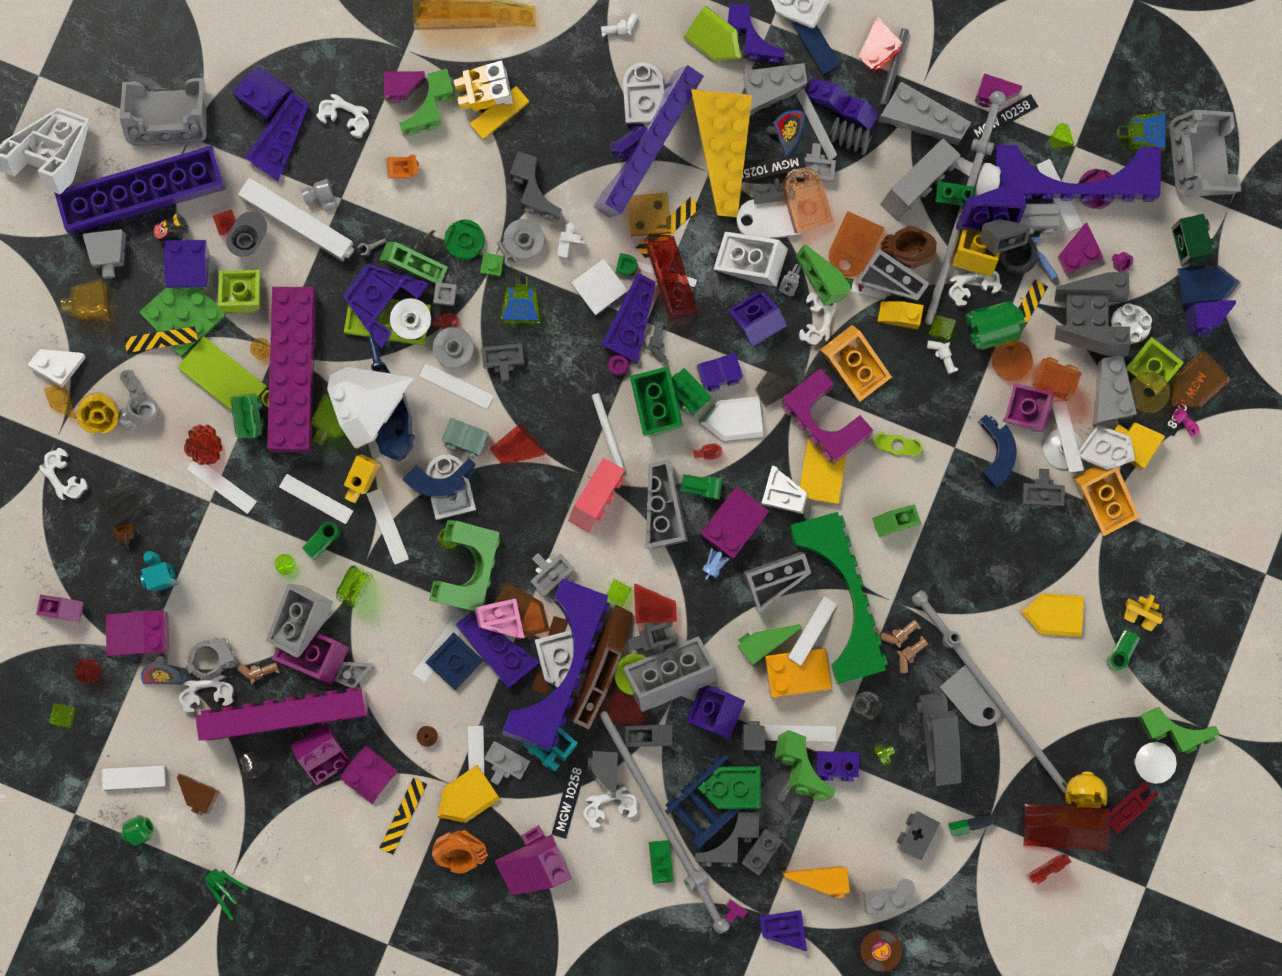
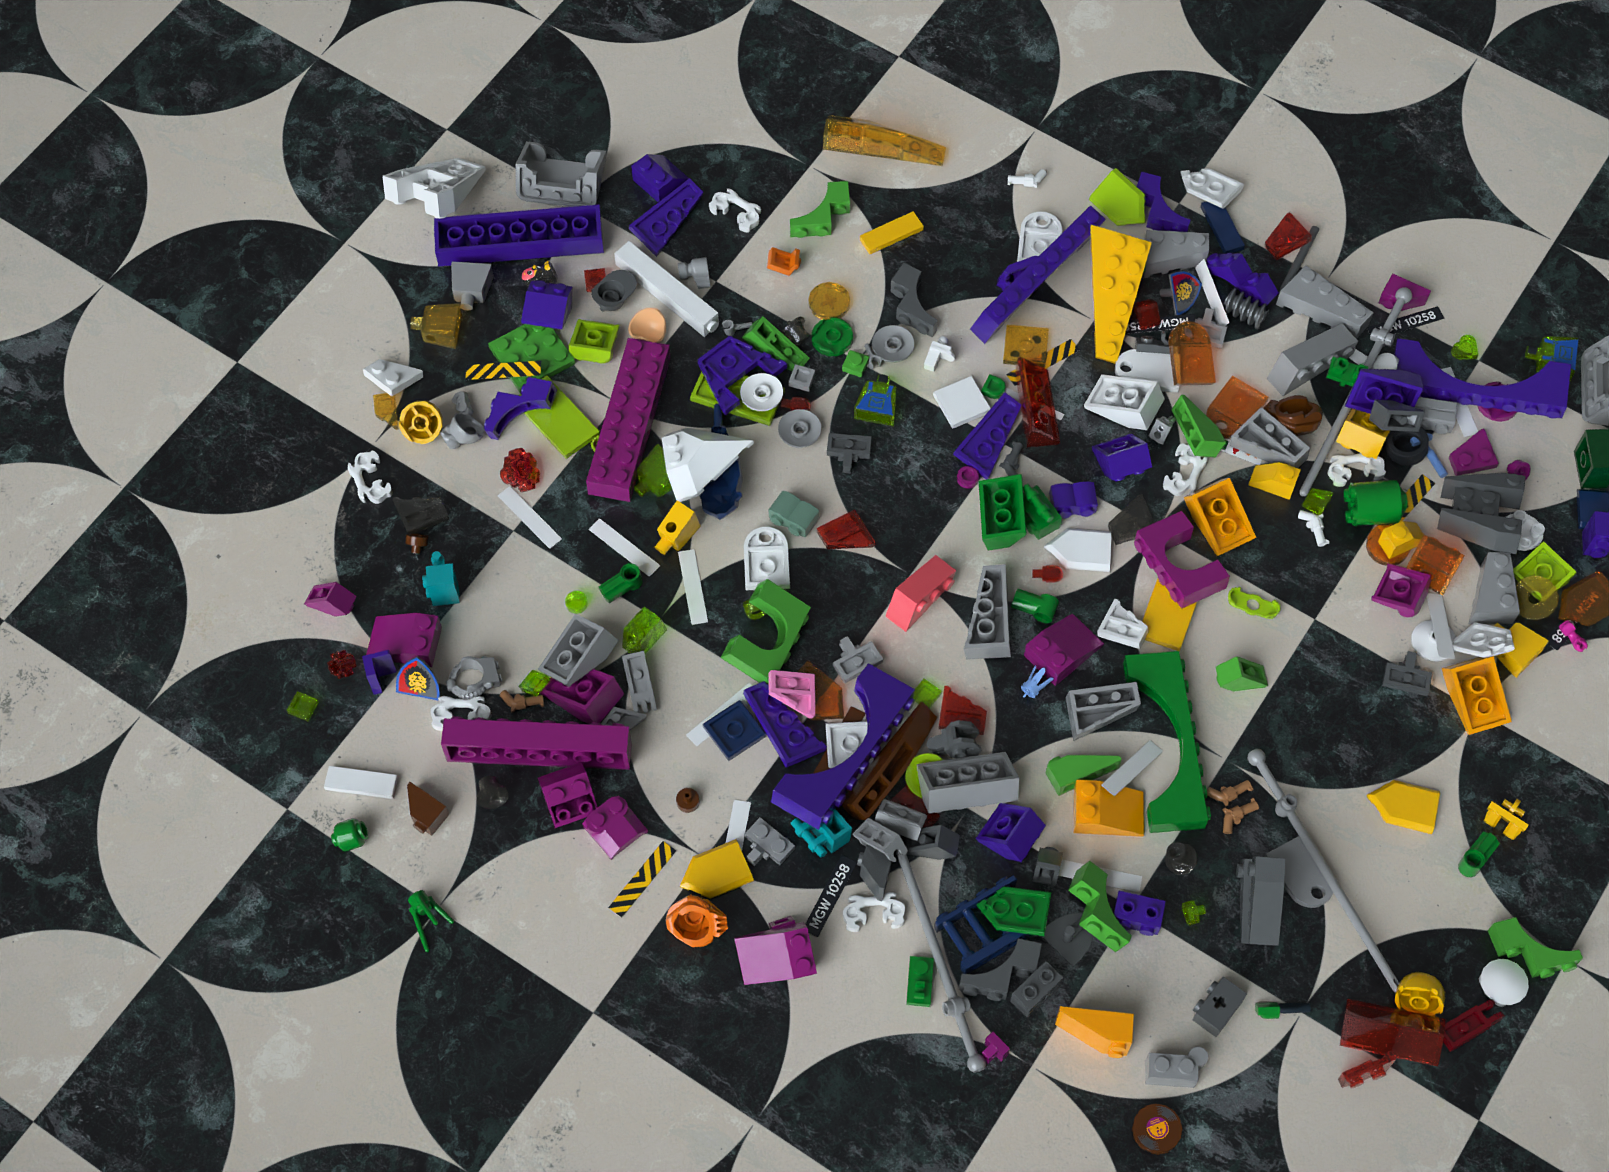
camera: 15 degrees right, 20 degrees down
(118, 676) = (378, 665): none -> dark purple panel
(173, 381) = (505, 407): none -> dark purple arch
(246, 415) = (572, 450): green brick -> none
(263, 352) = (601, 398): clear yellow tile -> none
(265, 653) = (534, 683): none -> clear neon green tile
(287, 267) = (648, 325): none -> light nougat helmet
(360, 633) = (639, 681): none -> light grey hinge
(402, 84) = (800, 190): magenta slope -> none
(439, 488) = (757, 553): dark blue arch -> none
(454, 201) = (829, 301): none -> clear yellow tile
(456, 386) = (794, 468): white sticker -> none
(484, 87) = (880, 204): yellow hips -> none
(603, 747) = (880, 838): none -> light grey hinge
(607, 430) = (943, 530): white piece -> none
(618, 722) = (900, 819): none -> light grey slope
(757, 159) = (1147, 313): none -> clear red slope
(784, 928) = (1049, 1080): dark purple wing -> none
(1005, 451) = (1370, 618): dark blue arch -> none
(1024, 356) = (1400, 538): none -> yellow slope

